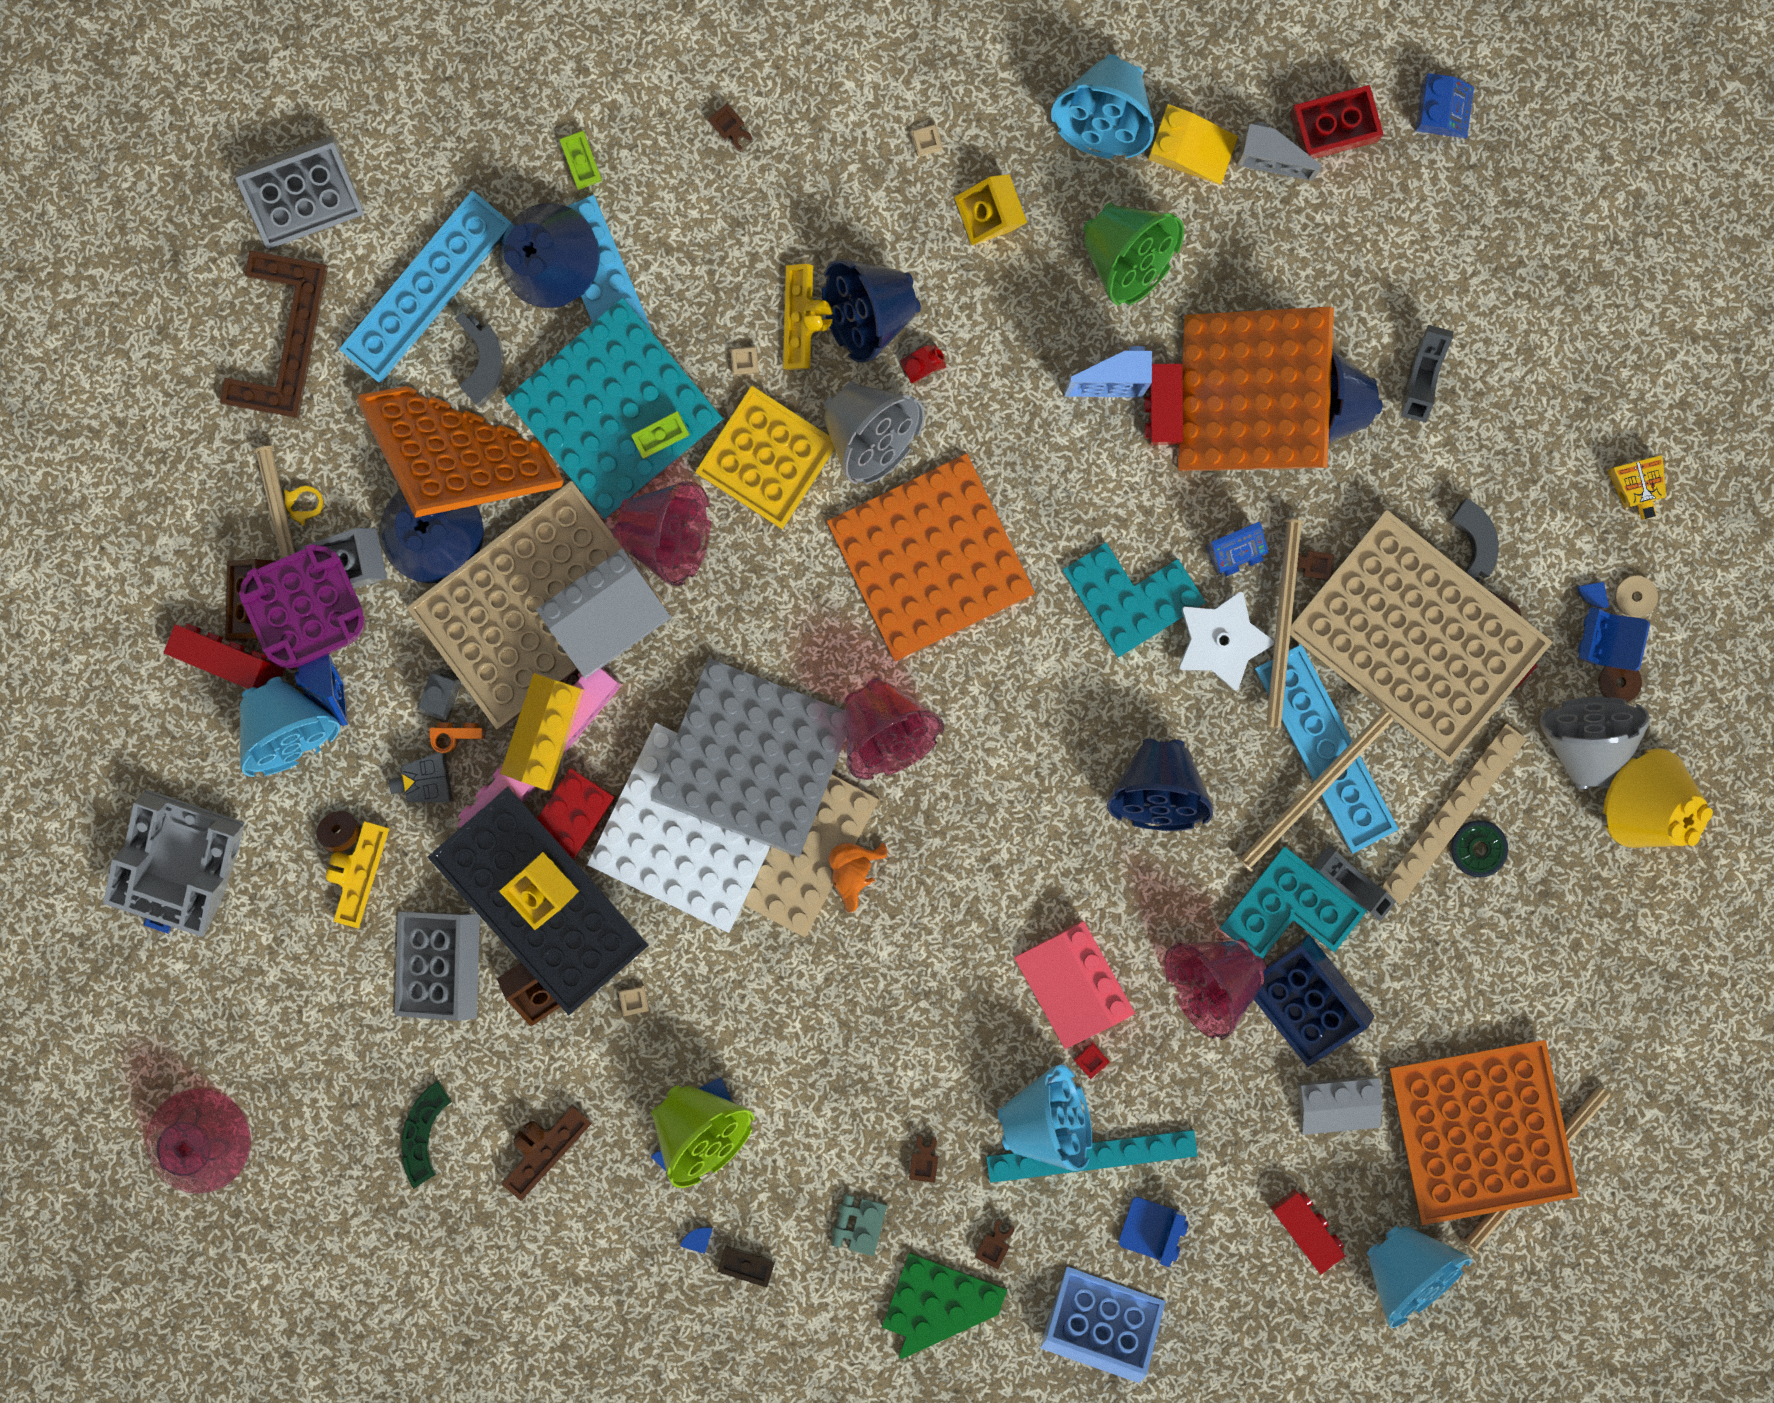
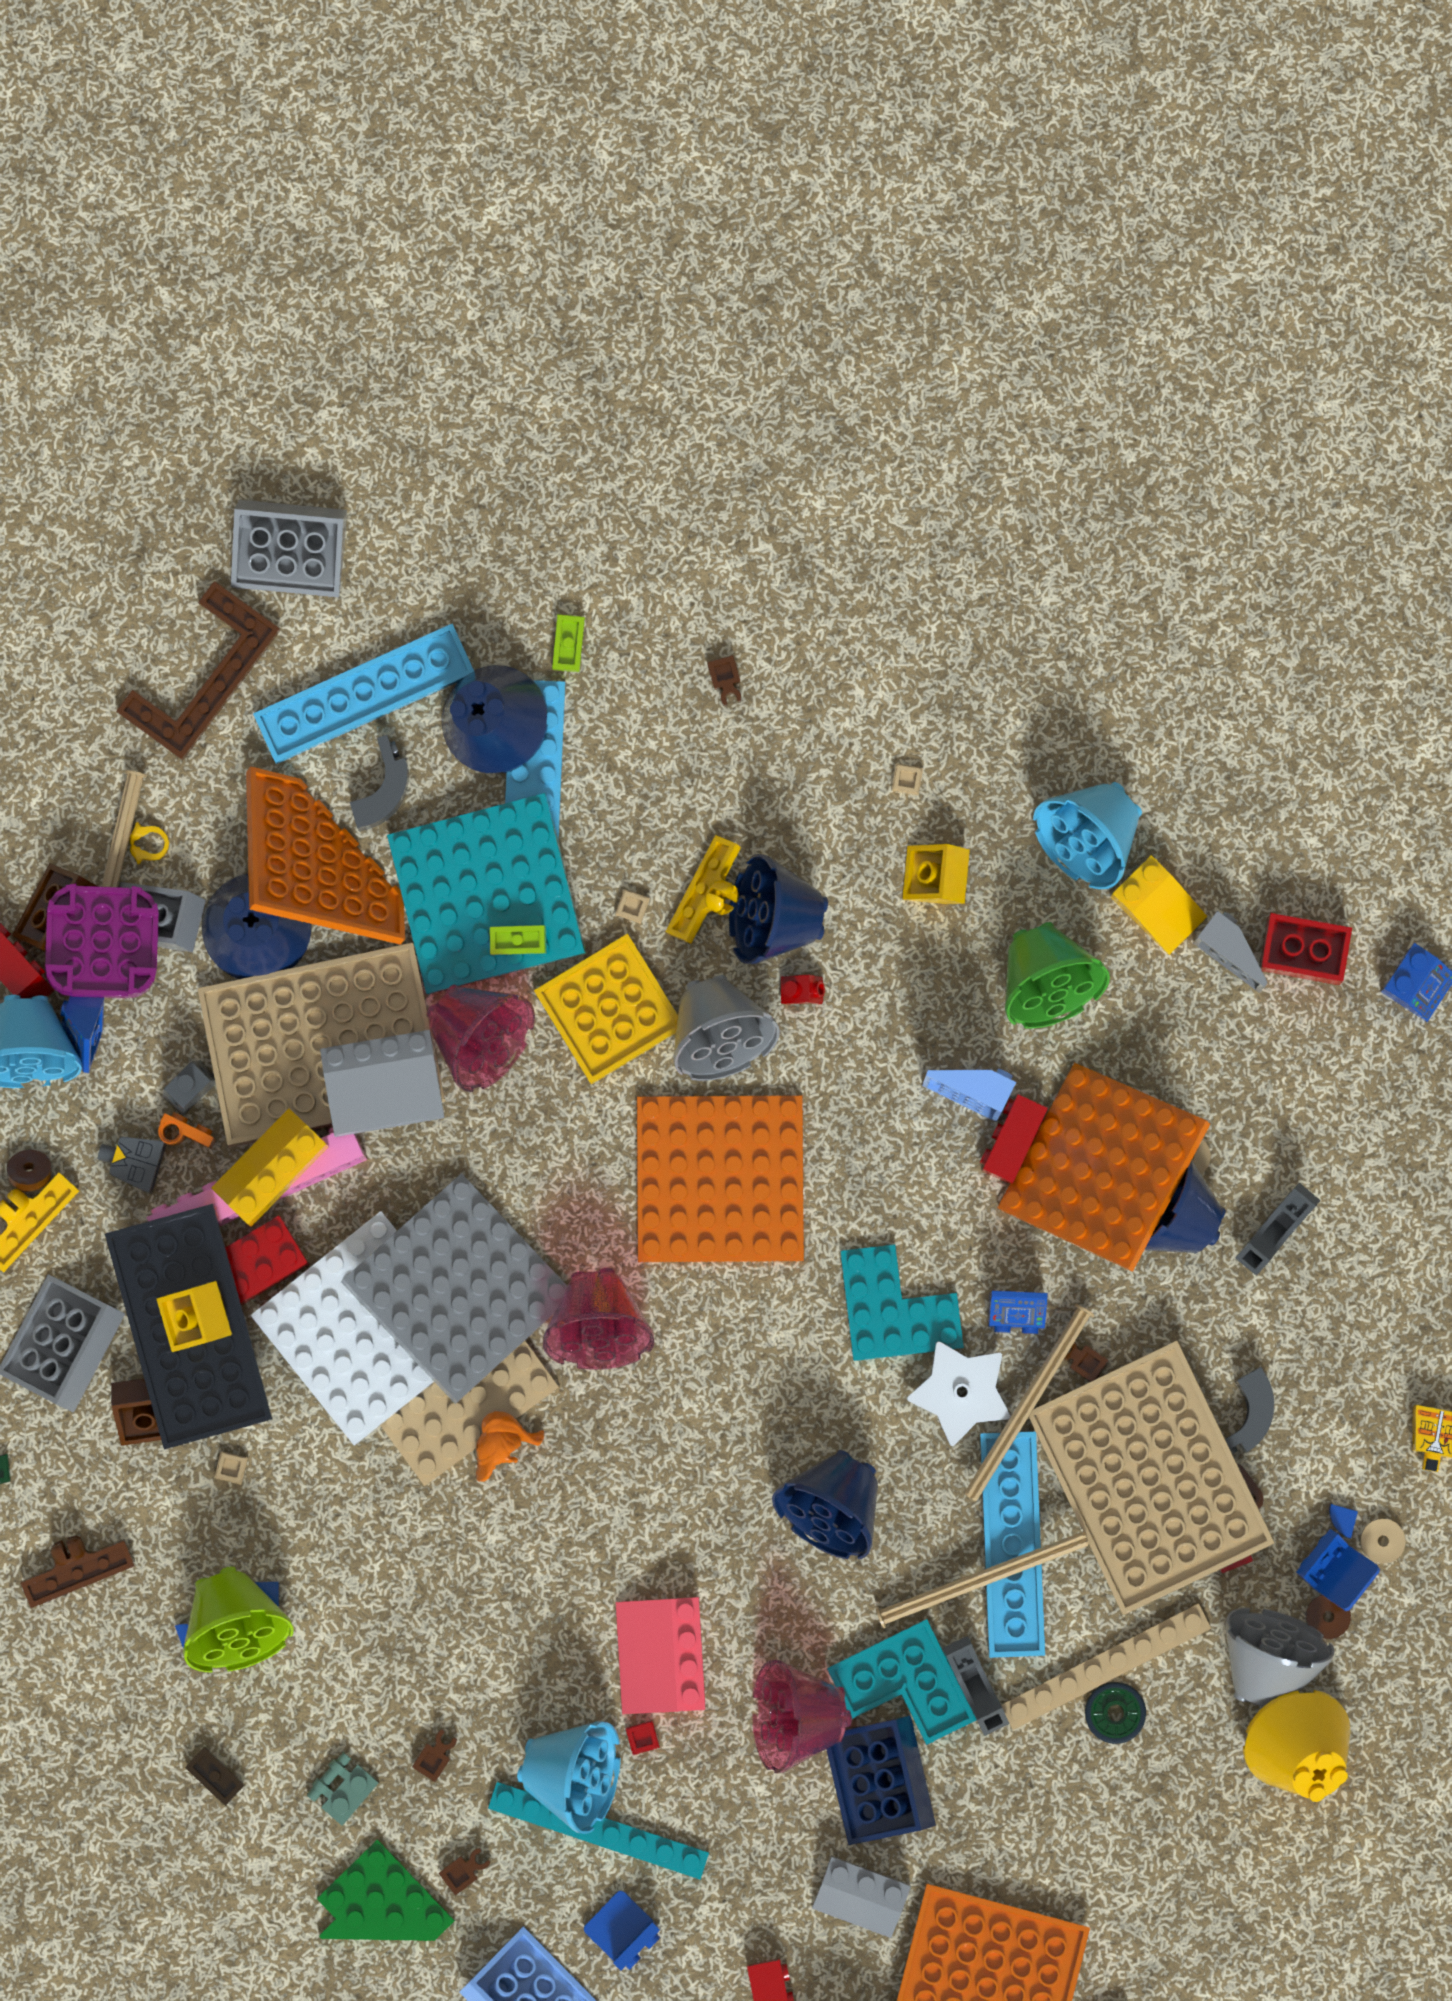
camera: 25 degrees right, 5 degrees down
(697, 1239) = (181, 1728): blue tile -> none

